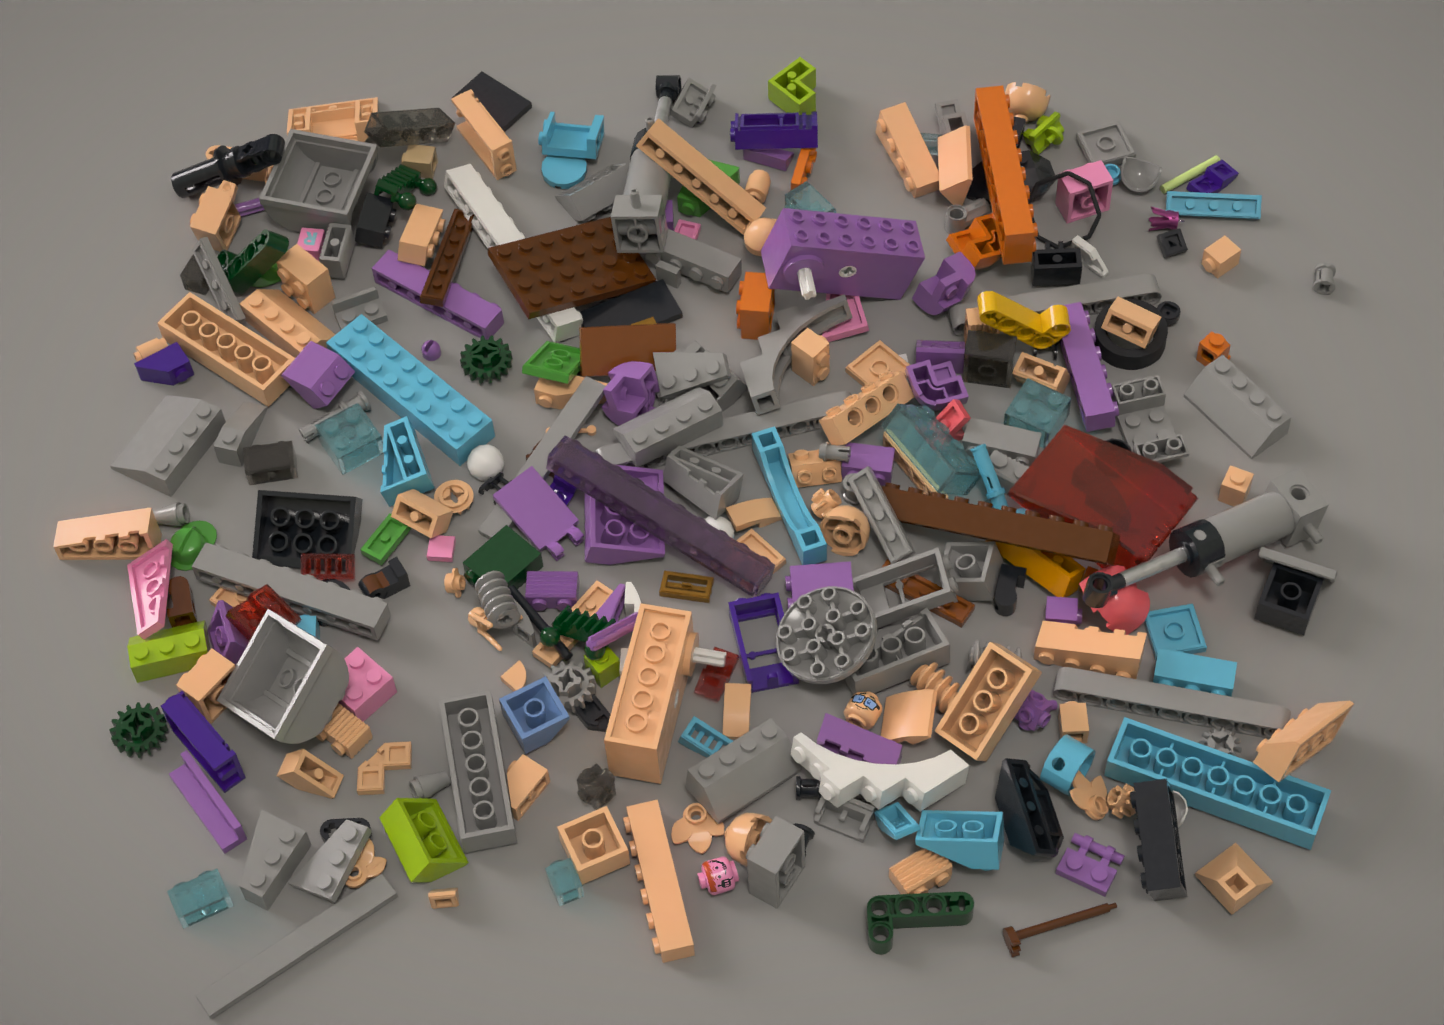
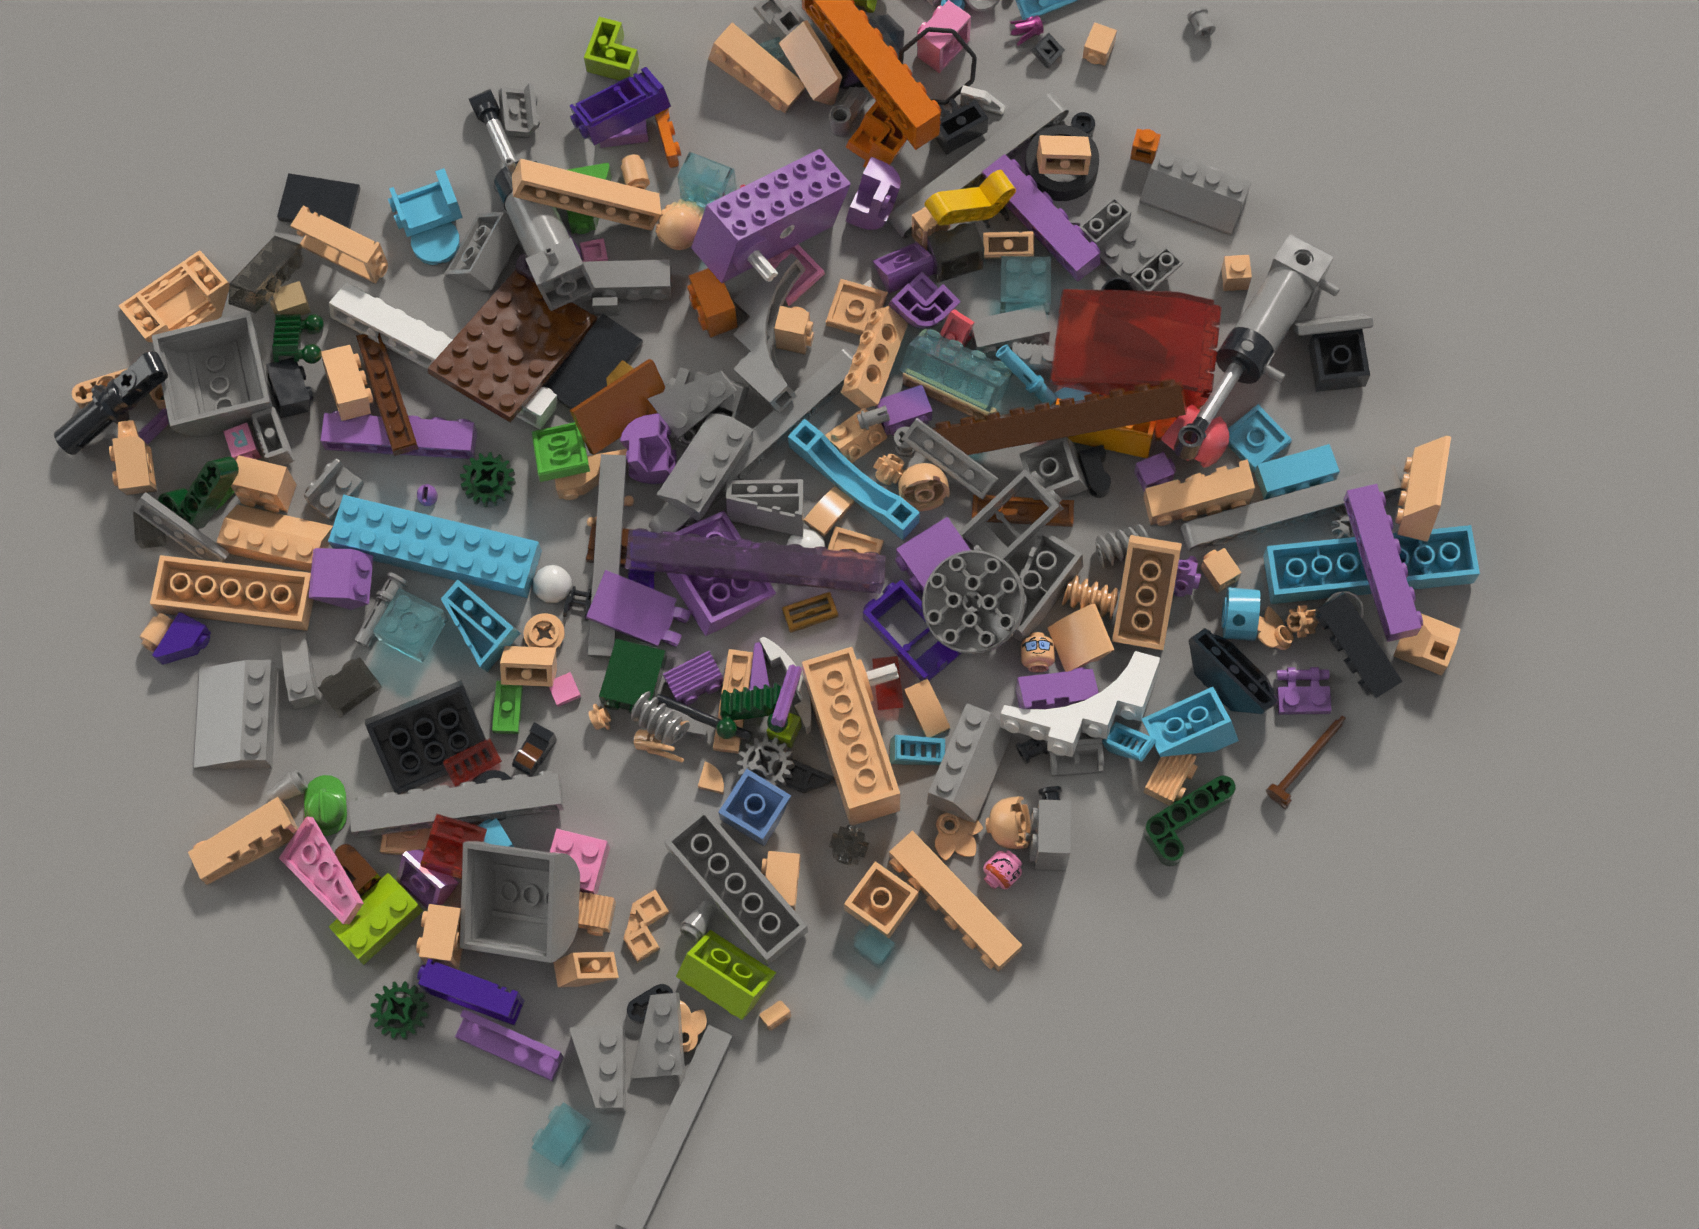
camera: 30 degrees left, 15 degrees up
(1222, 779) = (1382, 562): none -> medium lavender brick

